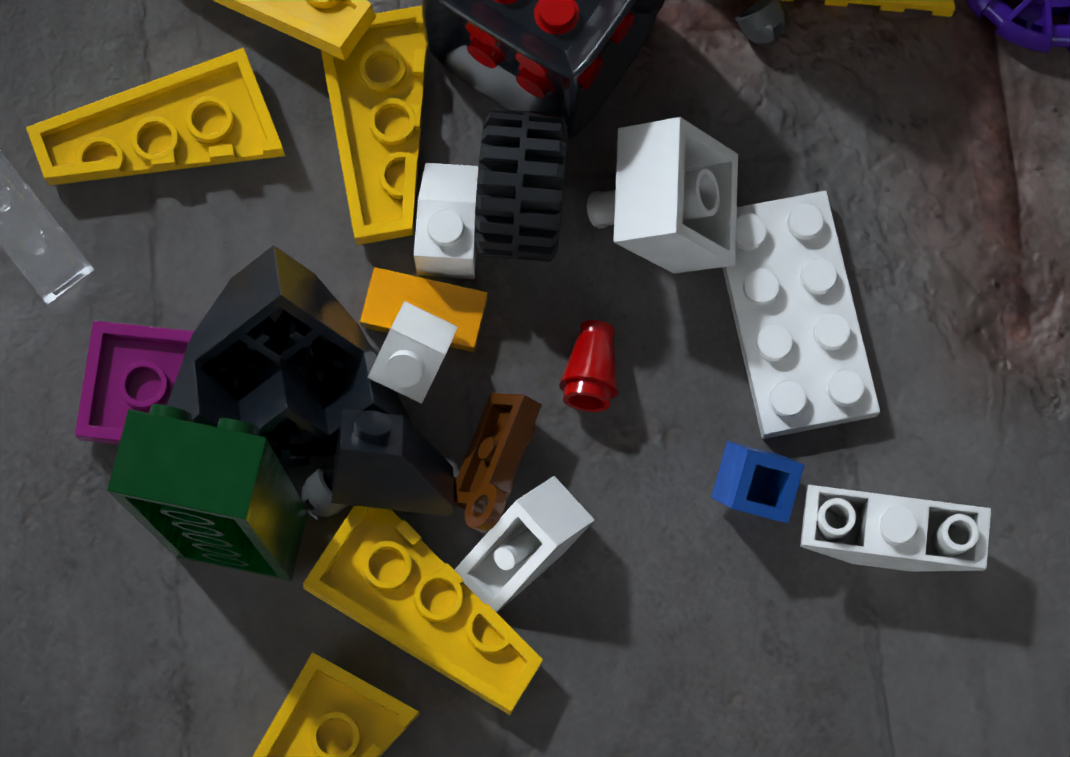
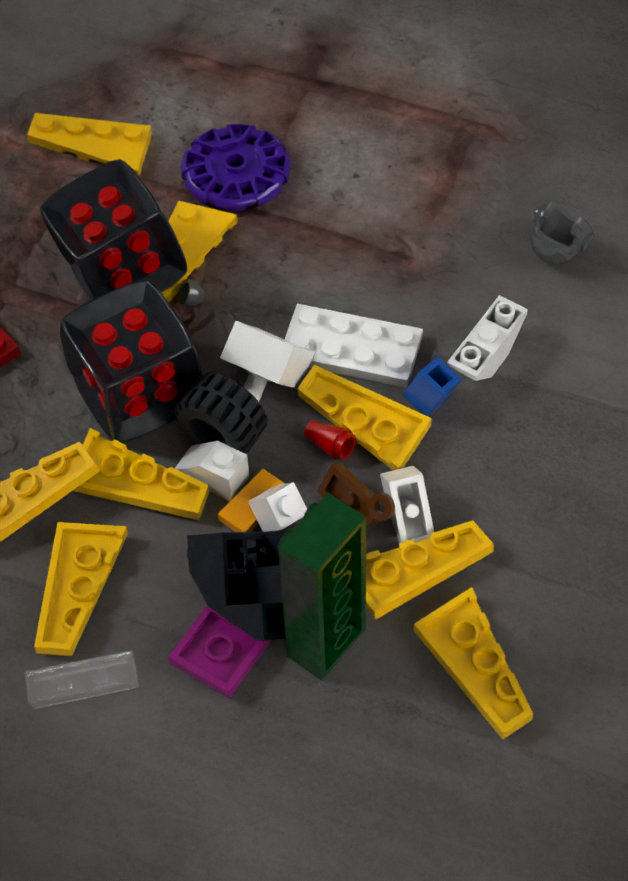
camera: 60 degrees left, 20 degrees down
(660, 414) = (378, 423): none -> yellow wing

